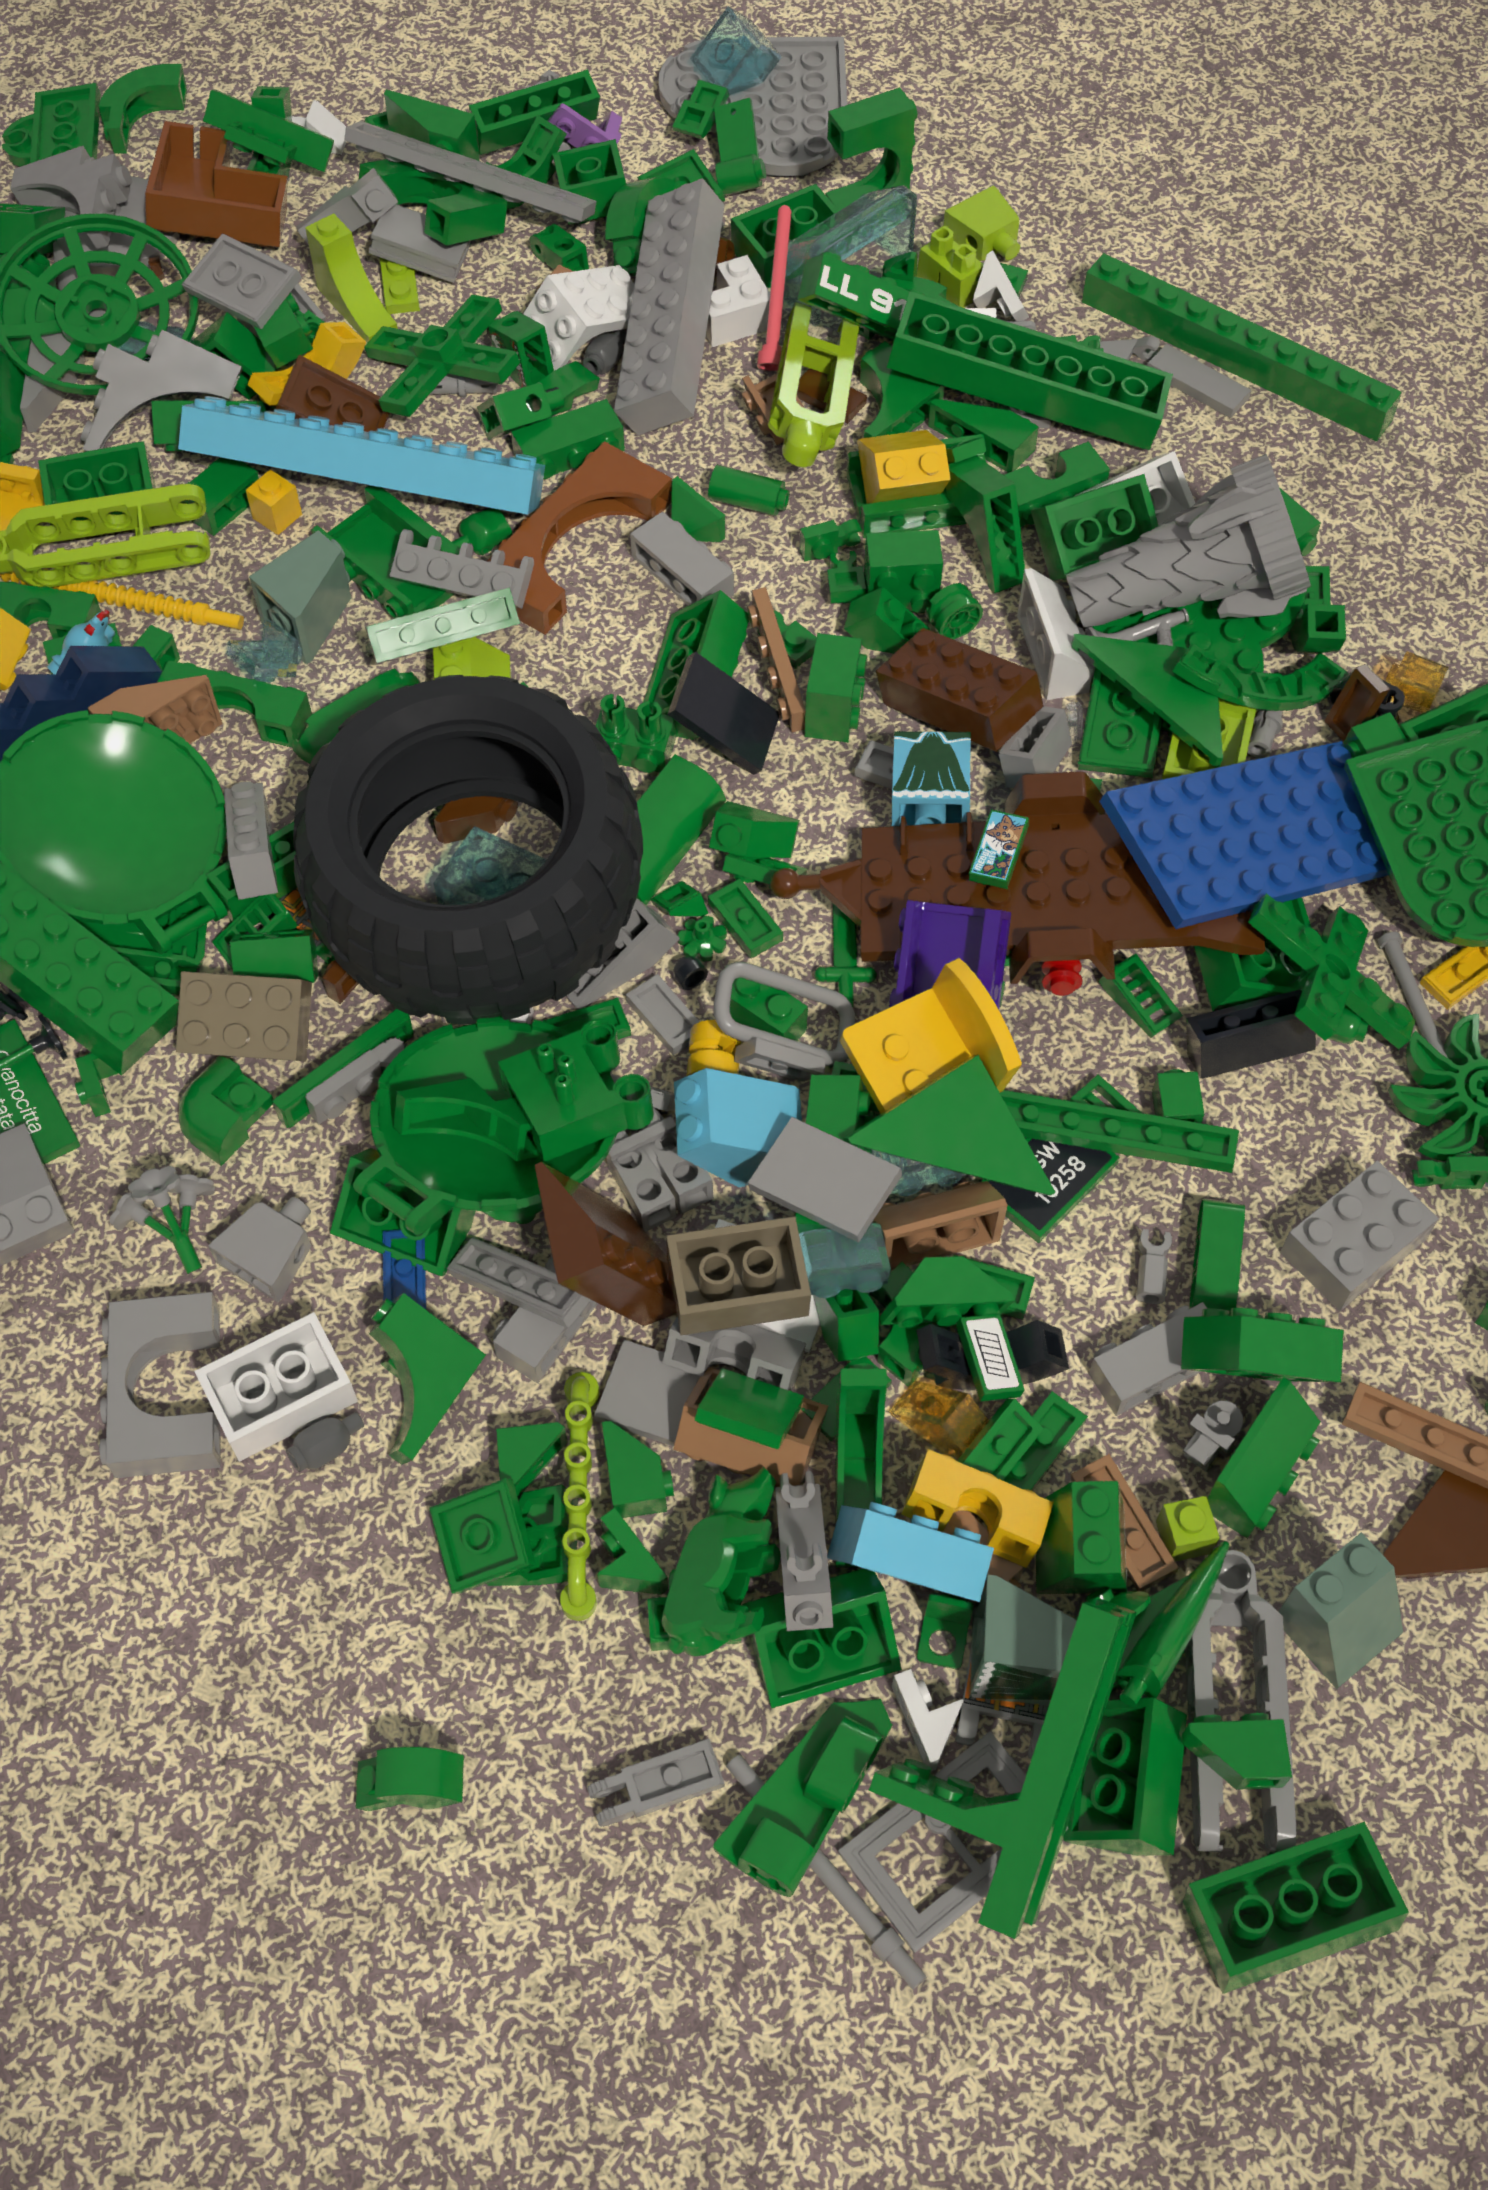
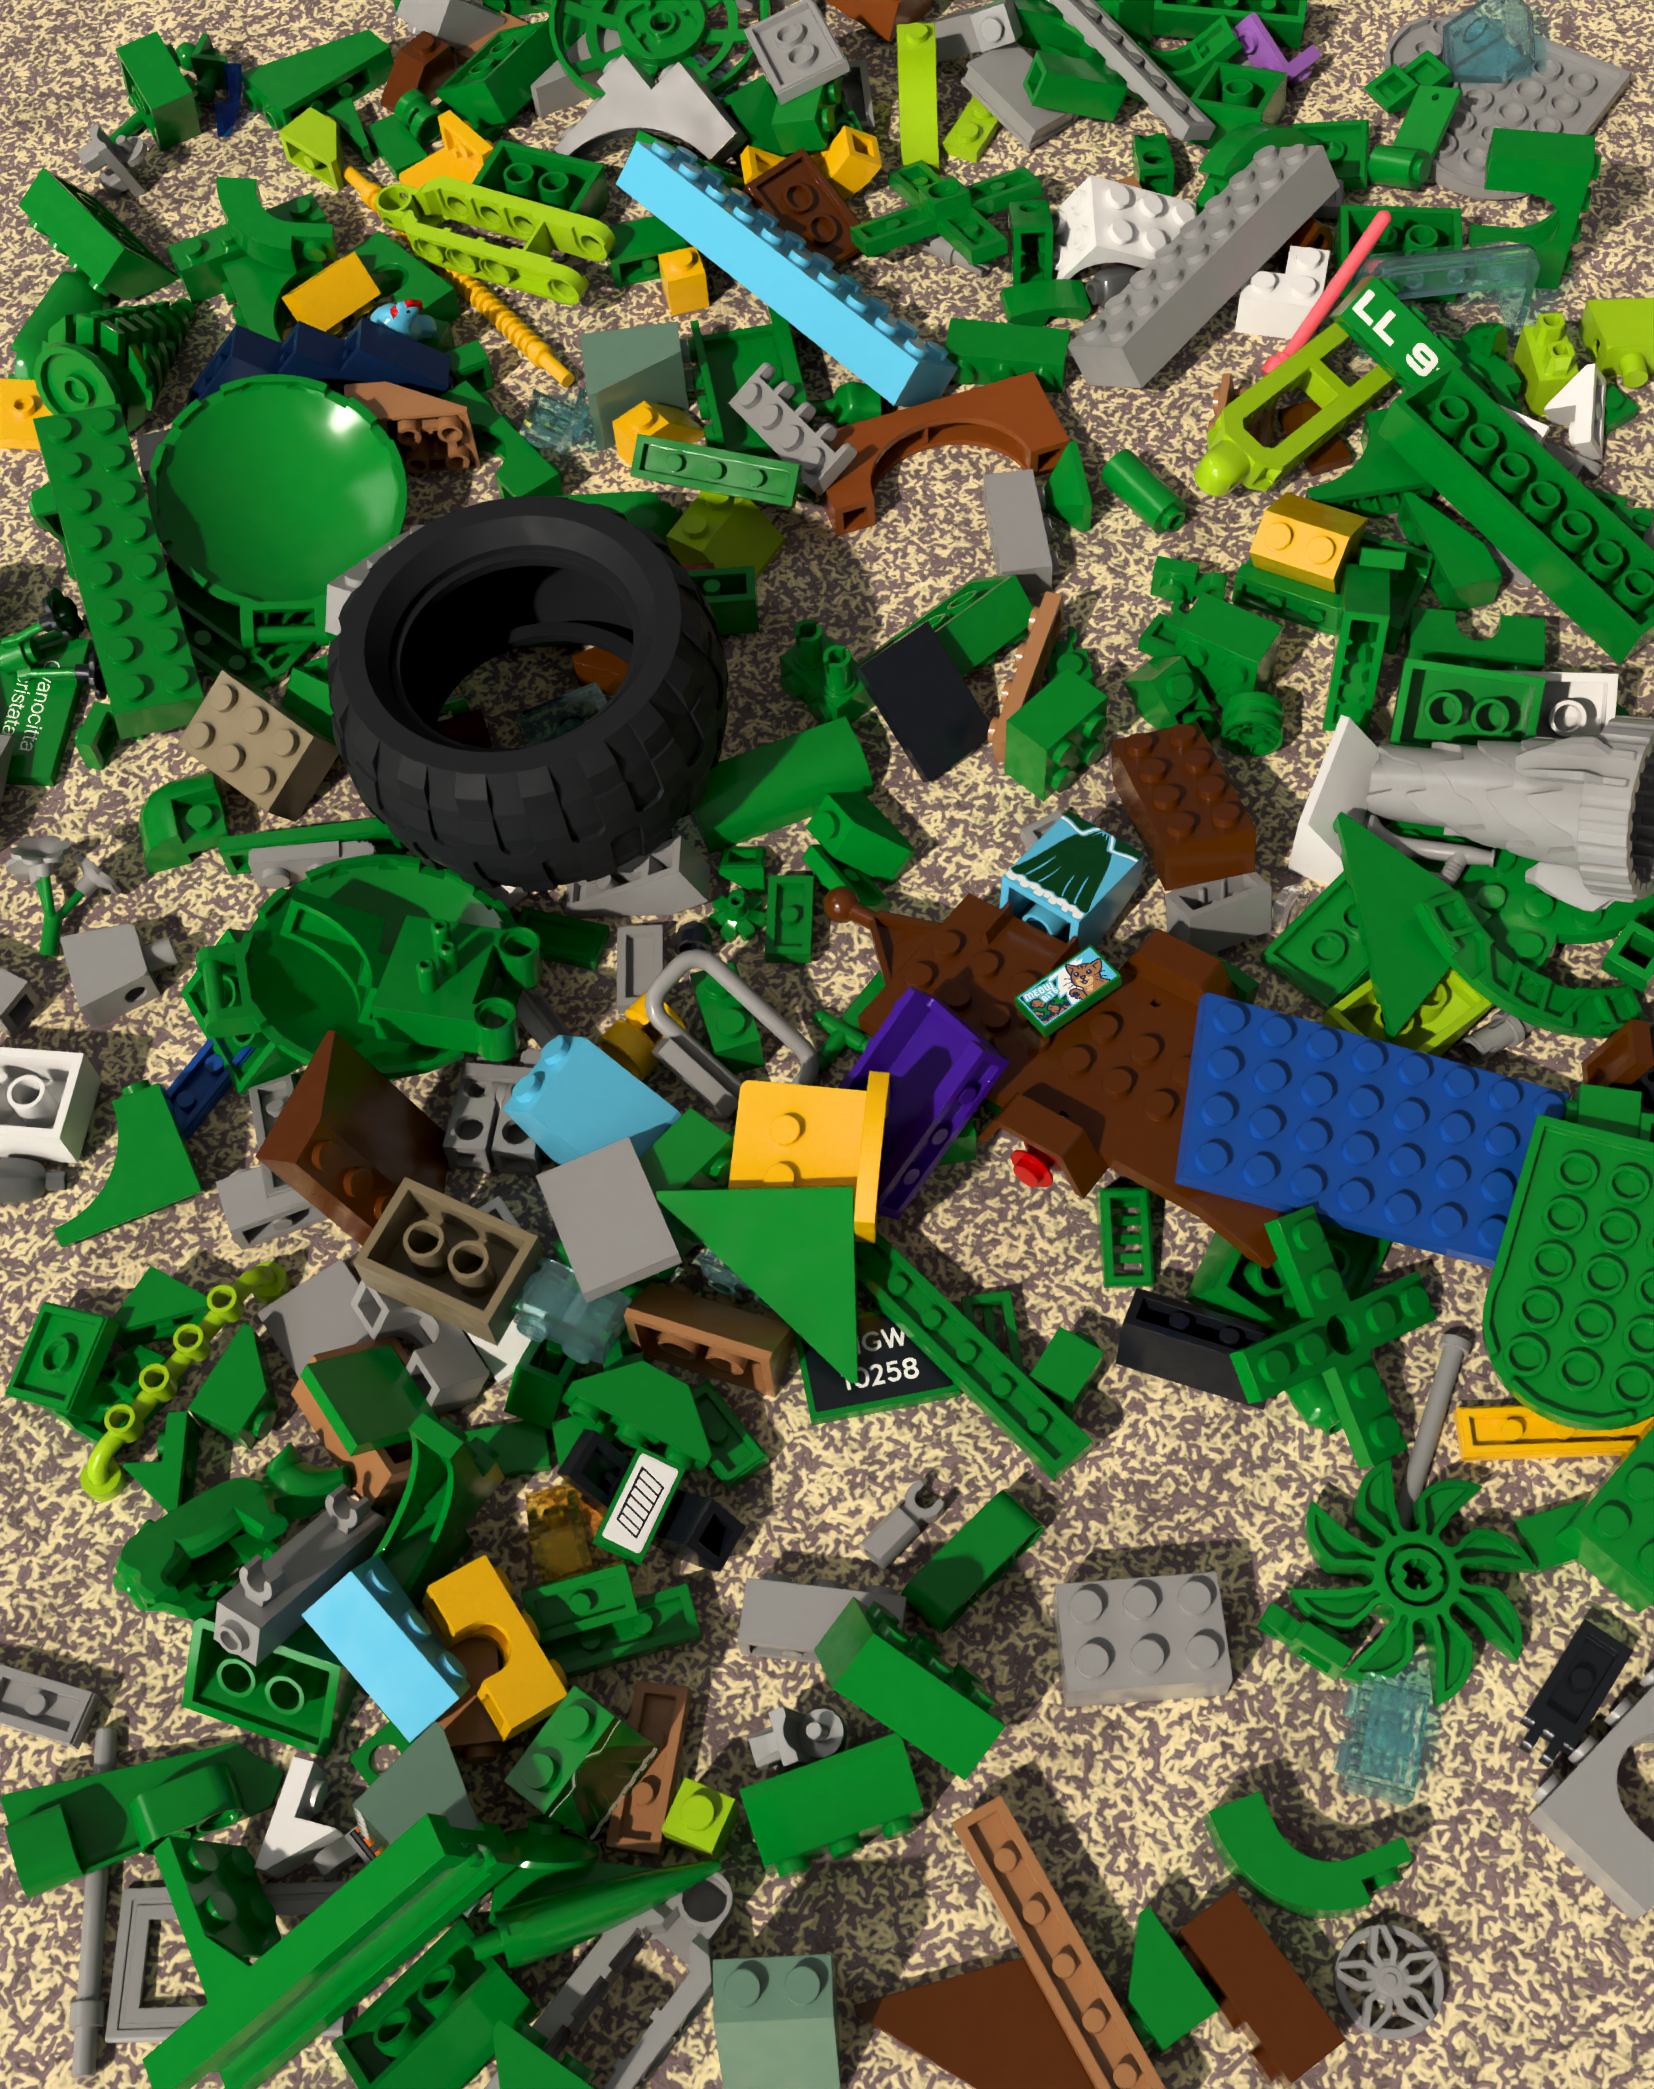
camera: 40 degrees right, 0 degrees up
(344, 631) = (654, 421): none -> yellow slope
(510, 411) = (961, 292): green torso -> none

